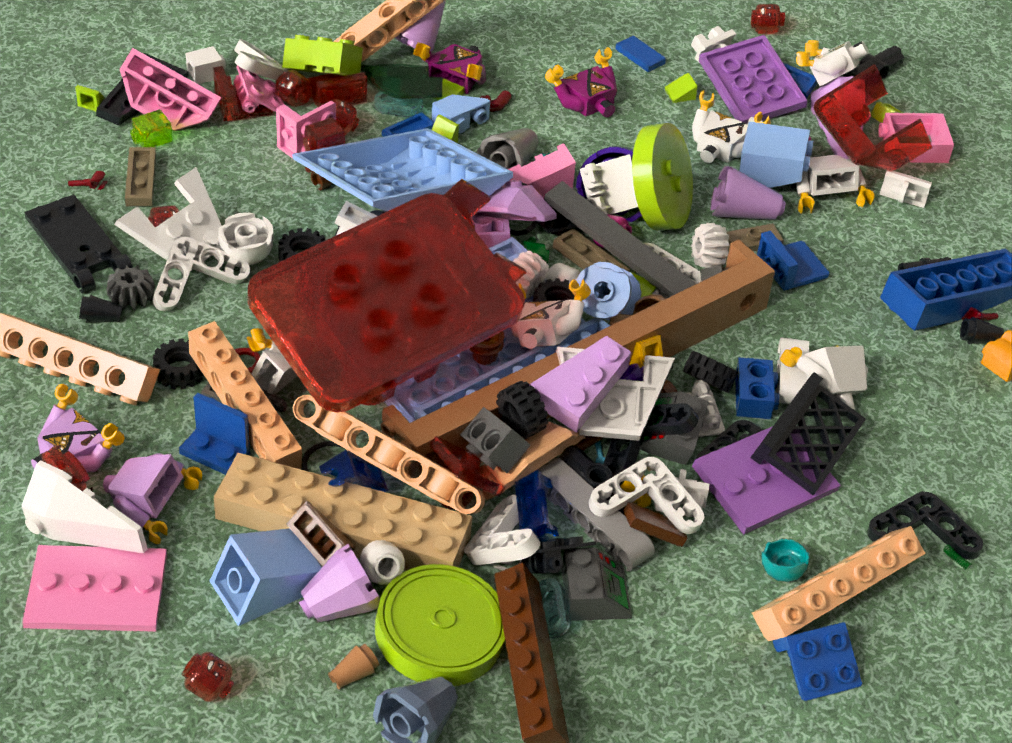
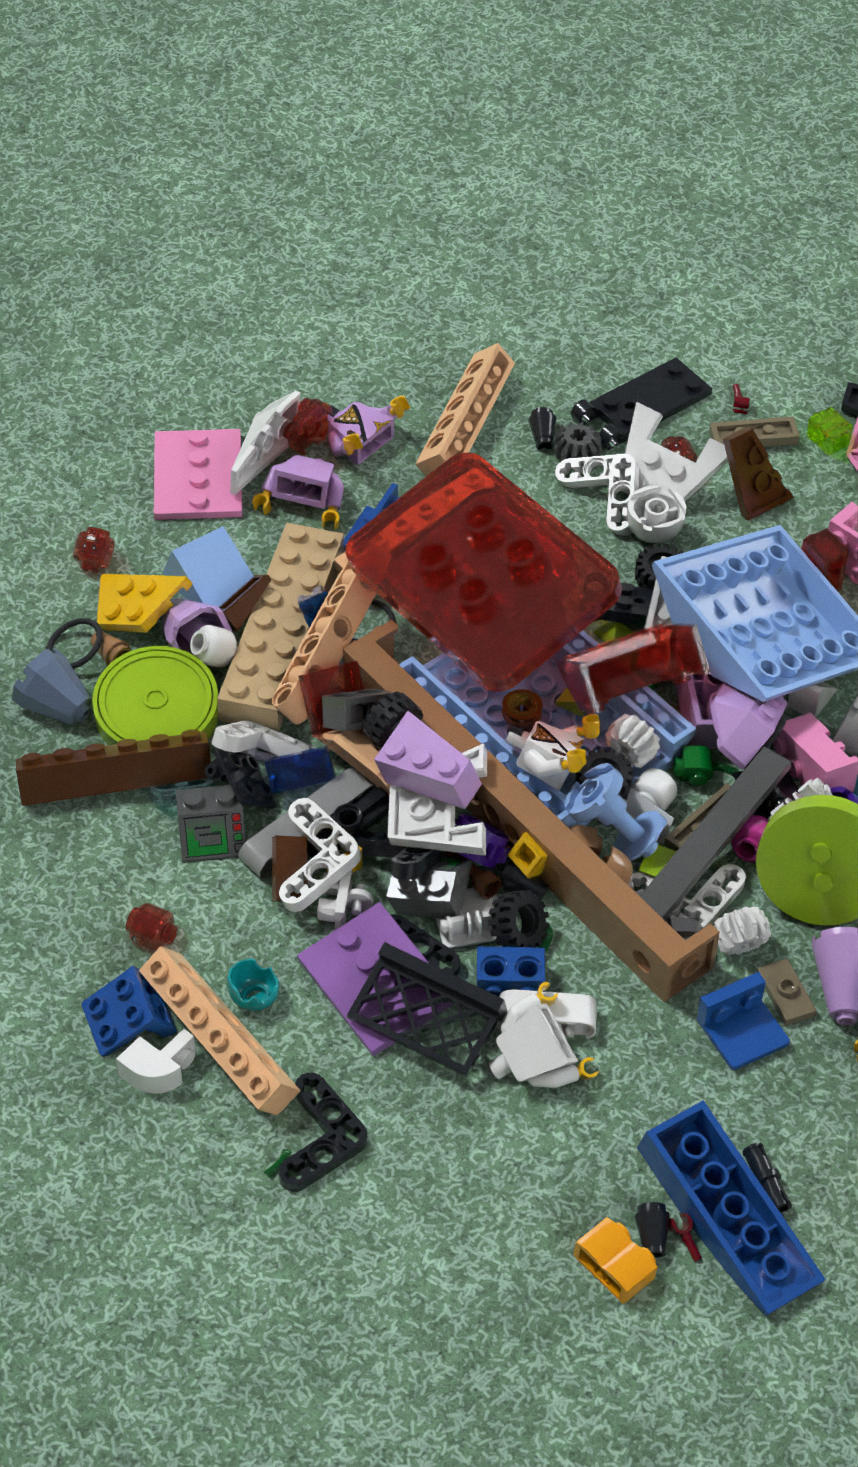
camera: 90 degrees right, 5 degrees up
(213, 171) = (753, 476): none -> reddish brown wing
(299, 634) = (136, 601): none -> yellow wing
(313, 698) = (99, 638): none -> black piece
(718, 637) = (151, 926): none -> clear red head
(878, 633) = (153, 1069): none -> white brick

